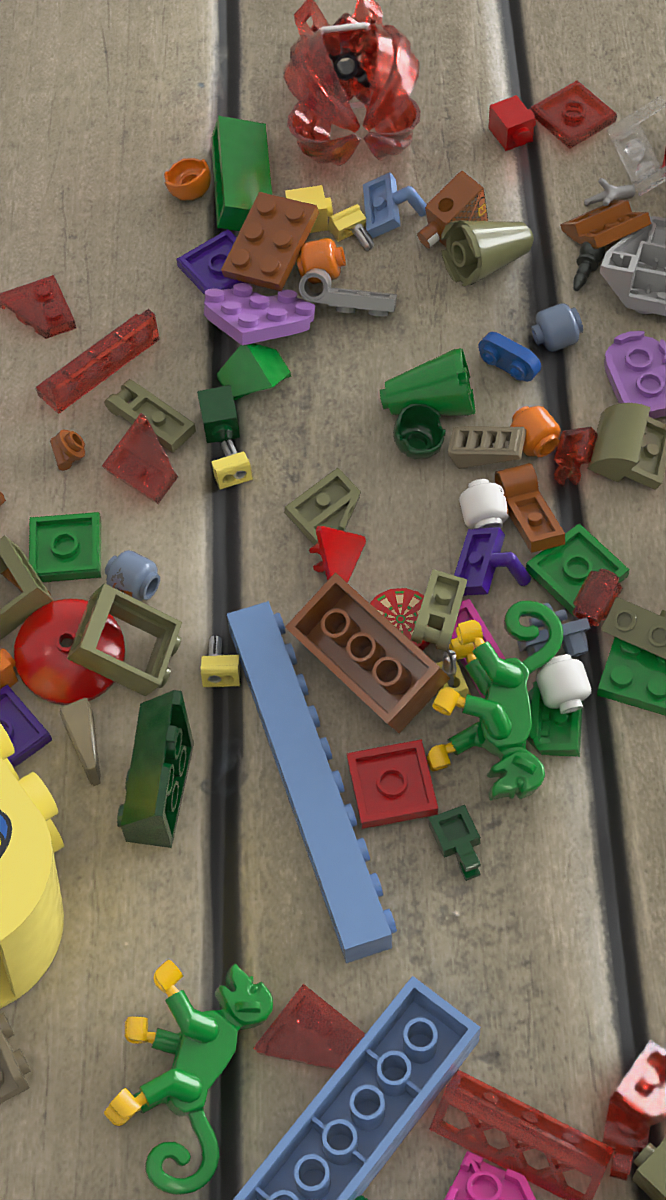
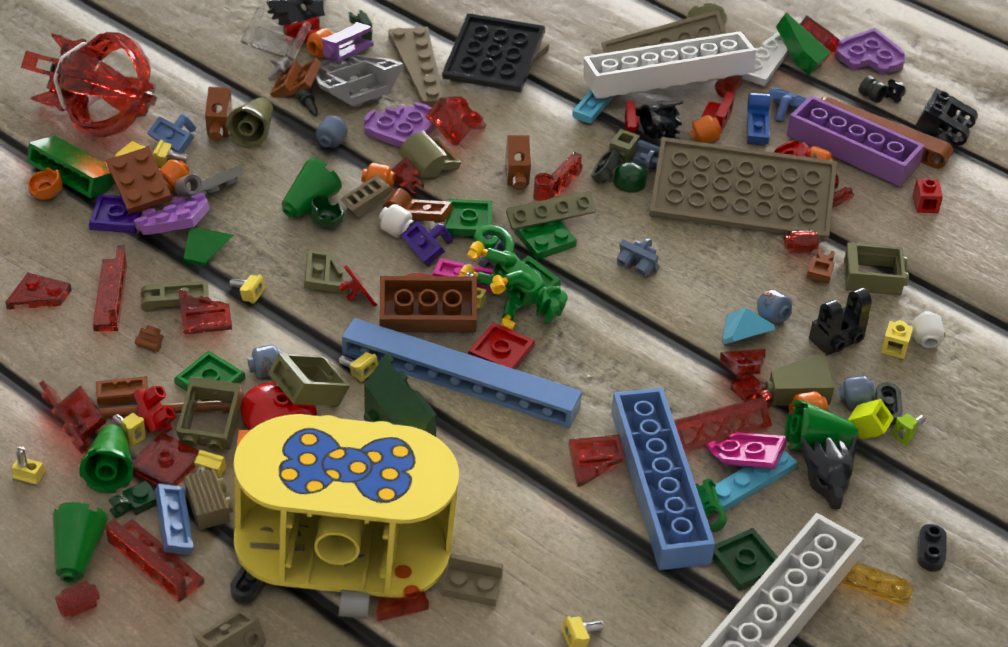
camera: 55 degrees left, 15 degrees down
(201, 1055) = (566, 497): green animal -> none
(218, 414) = (214, 269): dark green brick -> none
(439, 609) = (440, 263): olive plate -> none
(457, 835) = (555, 344): dark green plate -> none
(509, 356) = (332, 155): blue plate -> none
(511, 122) = (189, 63): red brick -> none
(563, 684) = (529, 253): white head -> none
(573, 114) = (214, 43): clear red plate -> none
(597, 596) = (497, 213): clear red brick -> none

